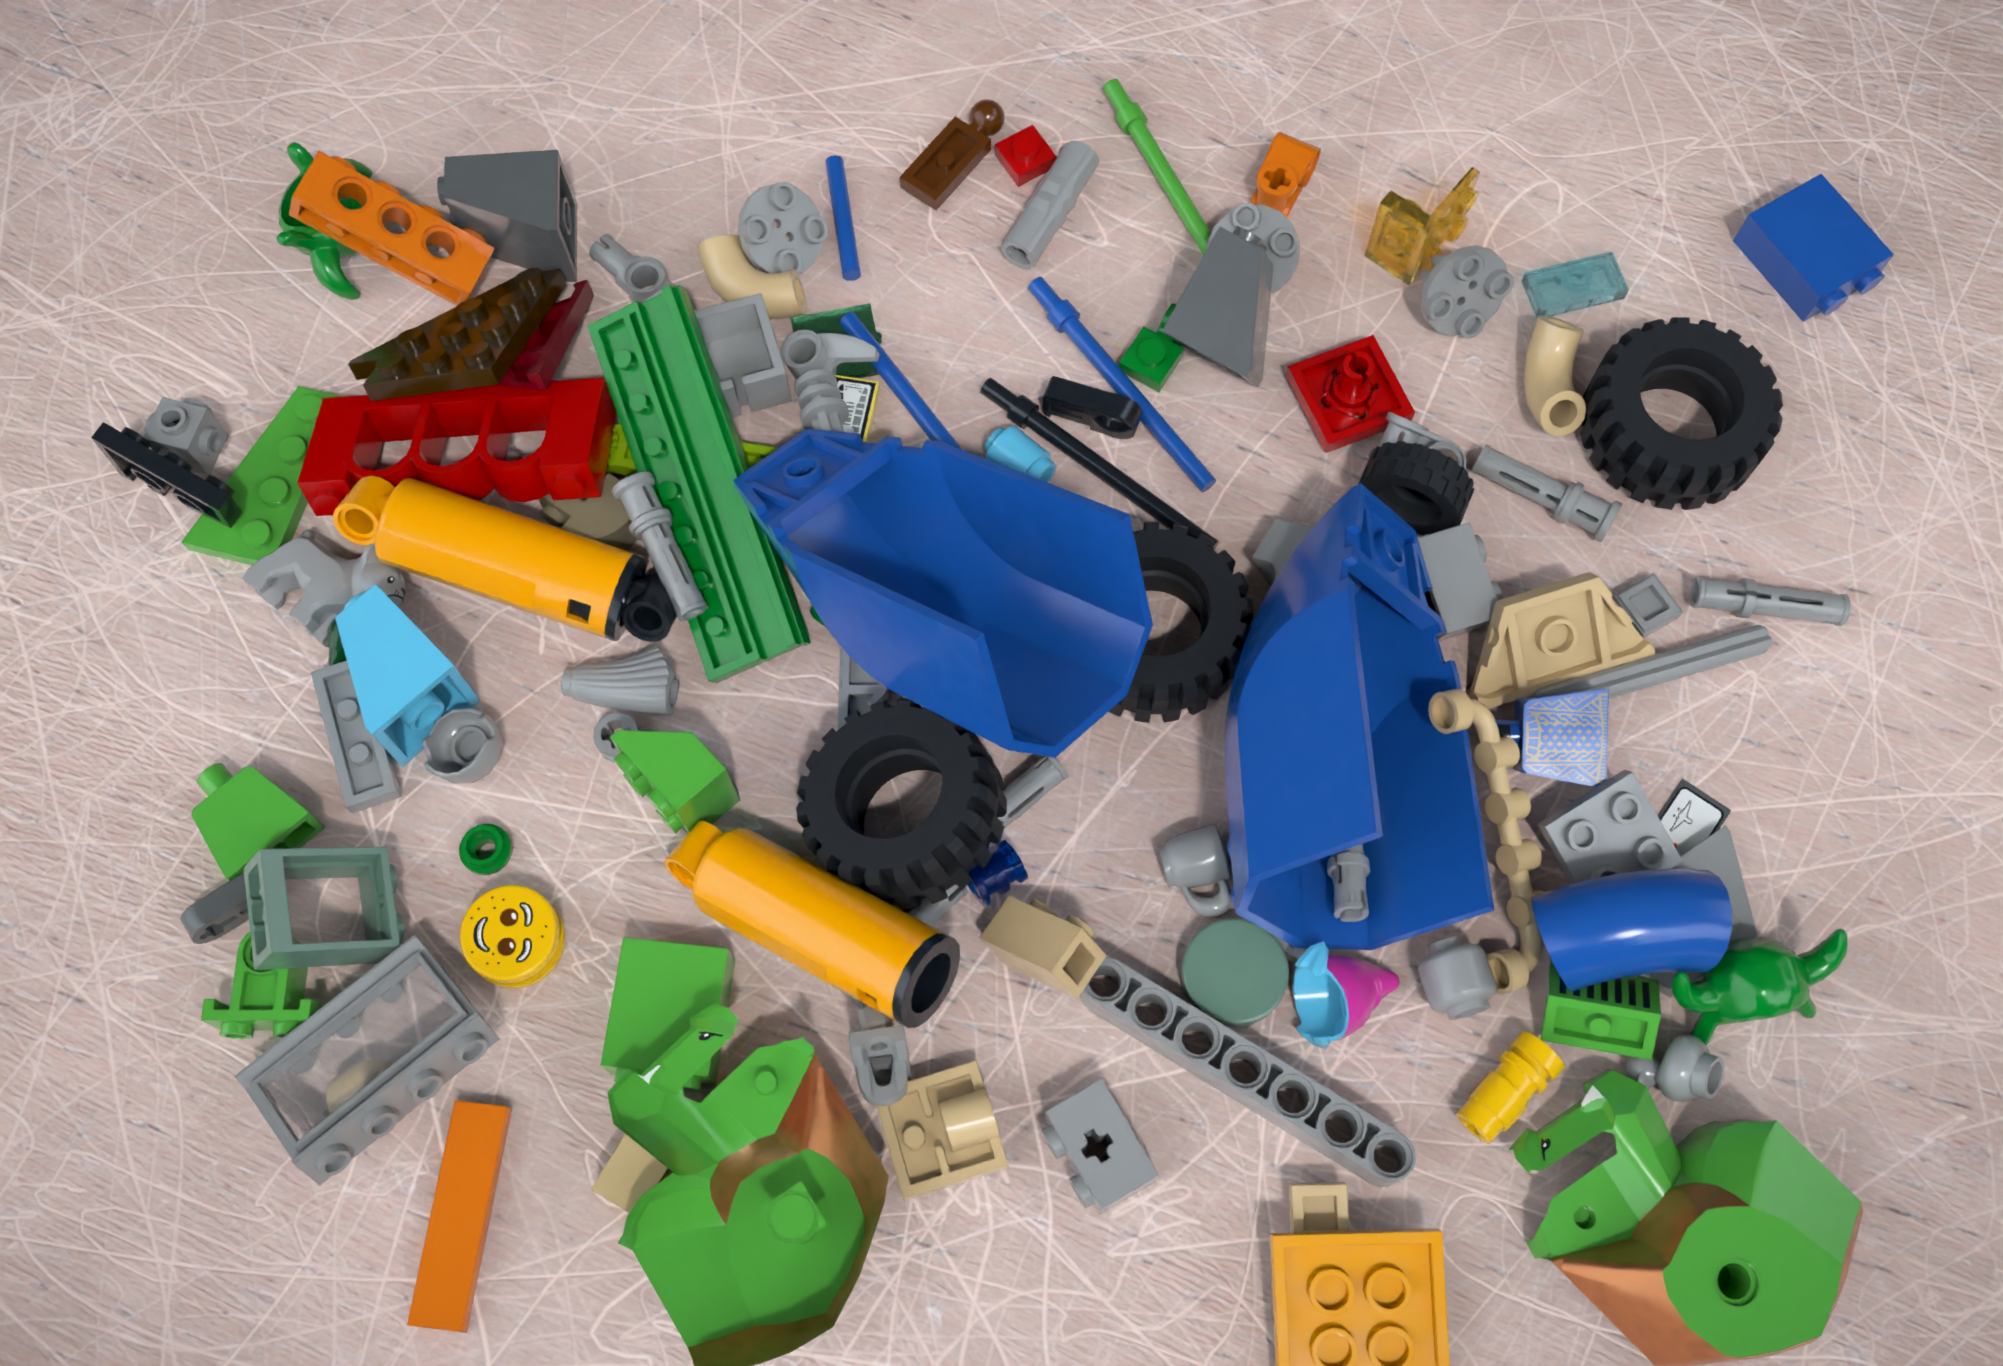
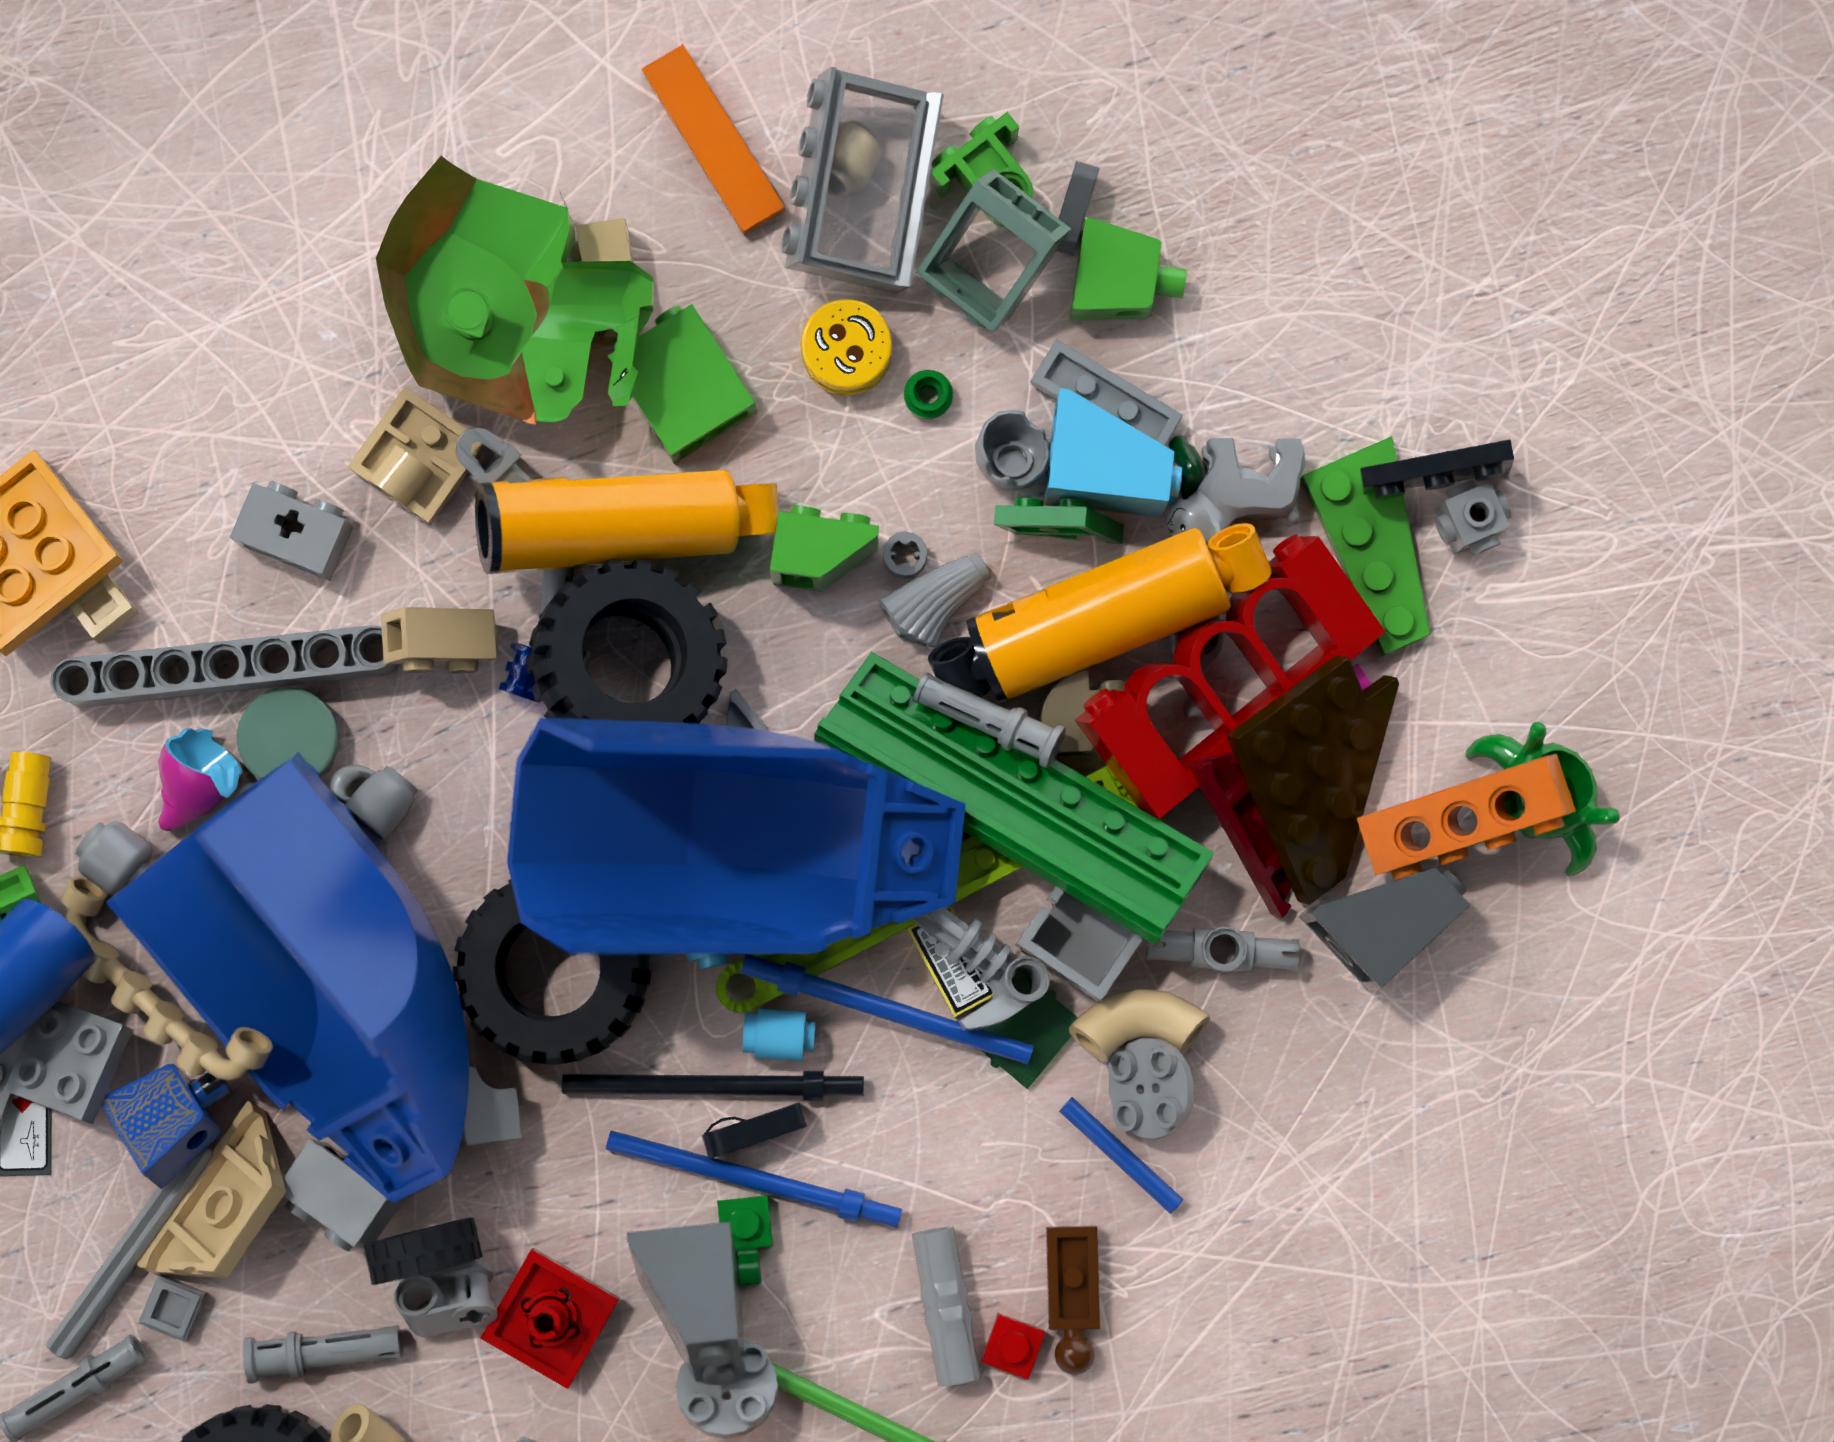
camera: 135 degrees right, 15 degrees up
(466, 651) = (1064, 521): none -> green wing

